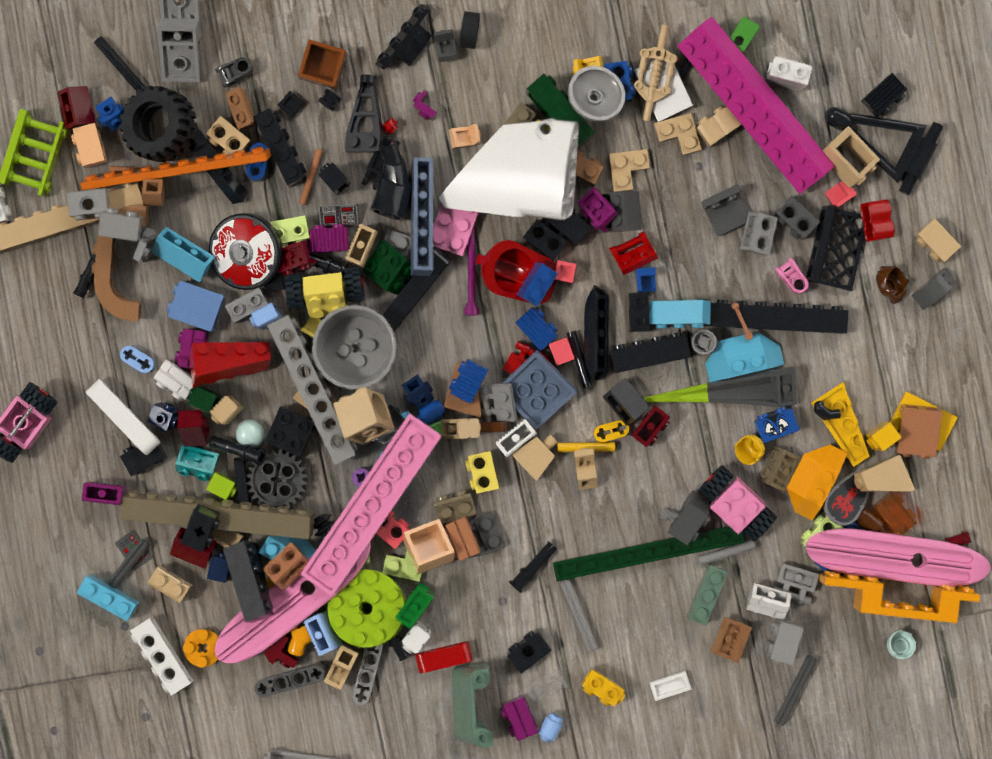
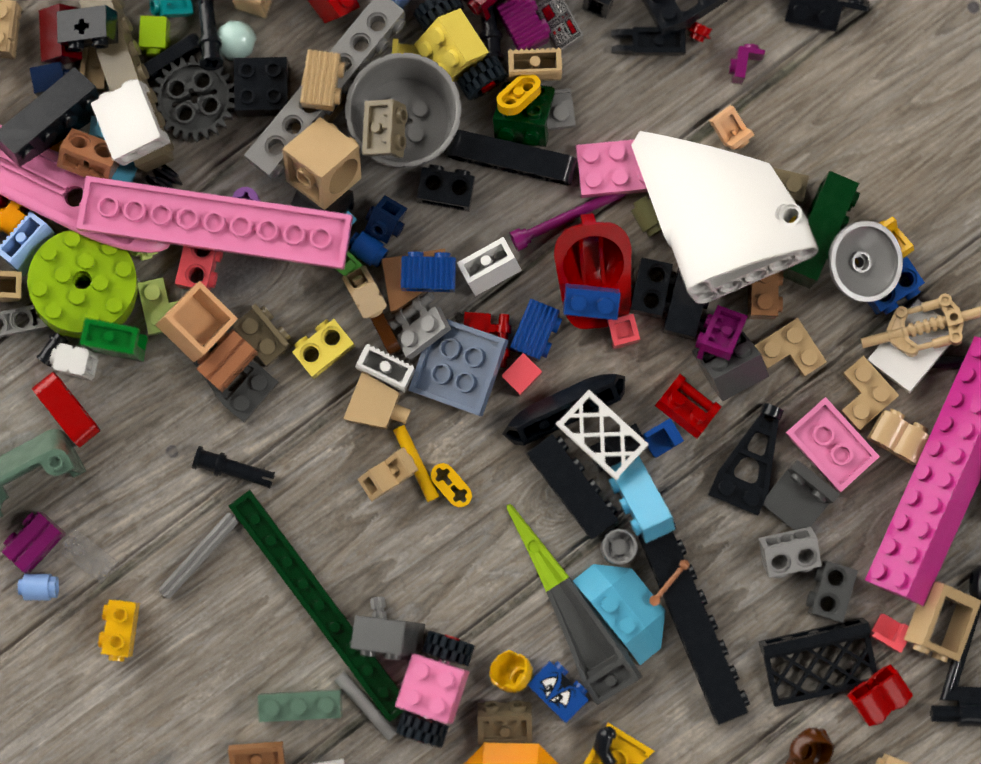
camera: 60 degrees right, 5 degrees down
(278, 530) = (129, 122): none -> white panel
(310, 391) = (321, 80): none -> tan brick
(362, 365) = (384, 128): none -> dark tan bracket
(378, 267) = (516, 94): none -> yellow plate
(394, 187) = (628, 70): black piece -> none
(419, 345) = (444, 195): none -> black brick
(422, 216) = (606, 119): sand blue brick -> none
(445, 45) = (832, 52): dark grey bracket -> none
(469, 30) = (866, 71): black tyre -> none
(481, 339) = (489, 266): none -> white brick
(496, 221) = (646, 216): none -> olive brick
(523, 661) = (107, 508): black brick -> none
(579, 359) = (522, 402): black piece -> none
(626, 401) = (497, 485): black brick -> none
(641, 327) = (604, 411): none -> white window
(650, 426) = (480, 530): dark red brick -> none
(670, 685) = (162, 715): white tile -> none
(702, 172) = (832, 445): none -> bright pink plate
(704, 246) = (737, 491): none -> black plate
(791, 276) = (756, 620): bright pink piece -> none

